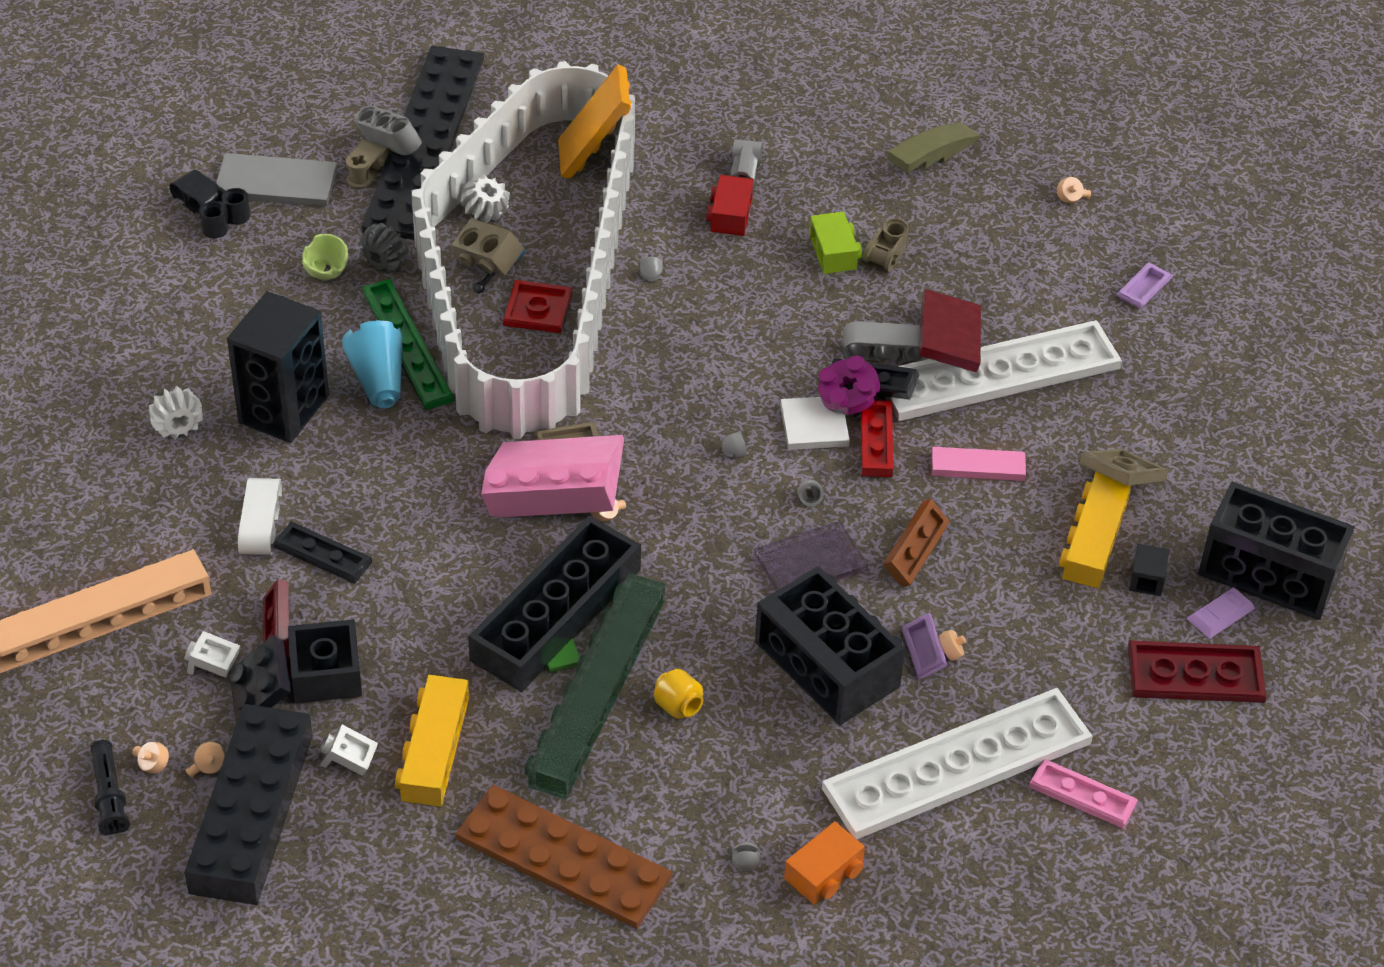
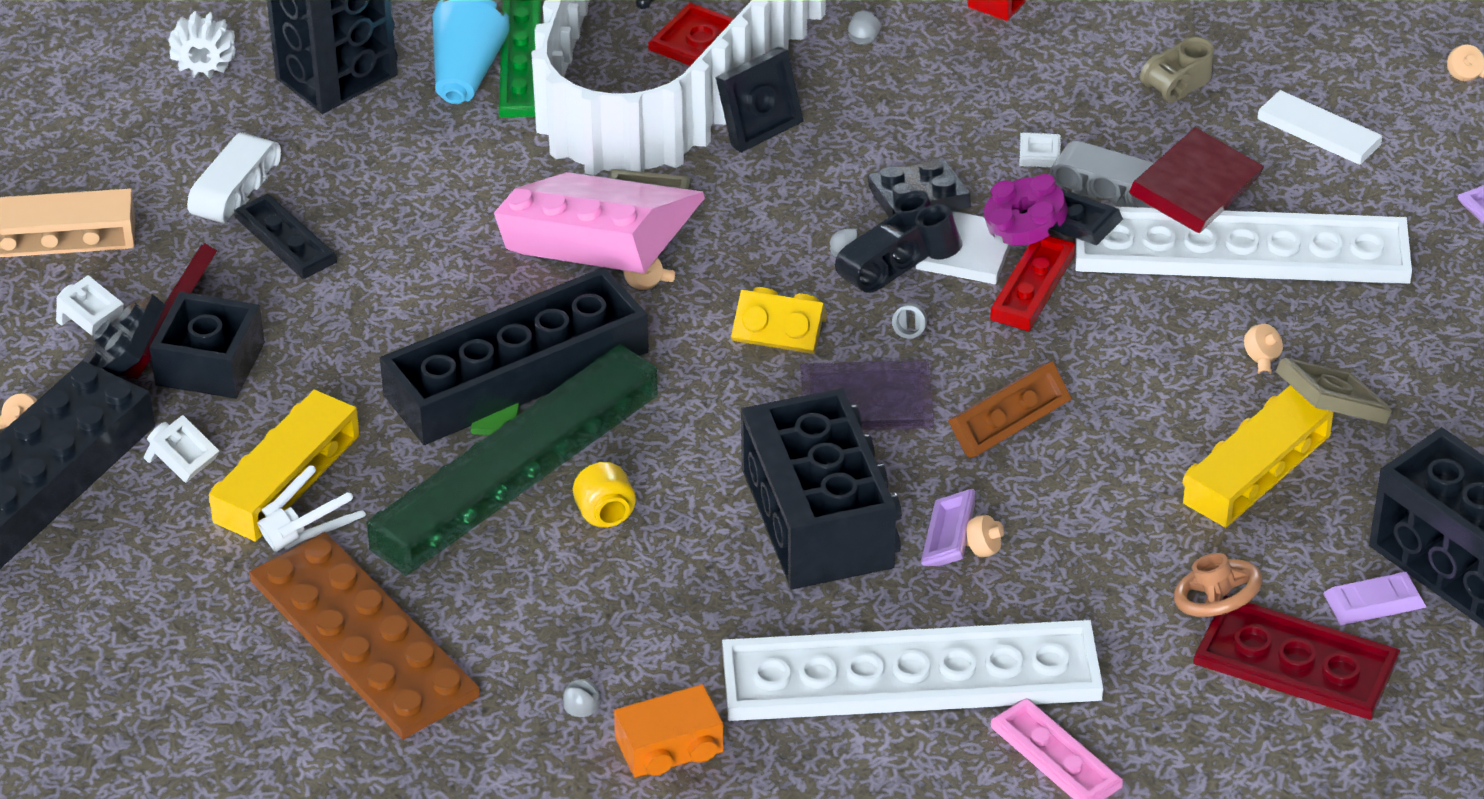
camera: 25 degrees right, 5 degrees down
(465, 789) = (285, 528): none -> white plant
(618, 348) = (759, 99): none -> black plate
(721, 519) = (778, 320): none -> yellow bracket
(761, 389) = (930, 176): none -> black plate
(776, 434) = (900, 242): none -> black piece
(823, 333) = (1039, 149): none -> white tile
(834, 242) = (1112, 50): lime brick -> none
(978, 463) = (1150, 344): bright pink tile -> none
(999, 264) = (1320, 127): none -> white tile
(1054, 444) = (1263, 345): none -> light nougat piece
(1121, 629) = (1217, 577): none -> nougat piece
(1149, 569) = (1299, 519): black brick -> none

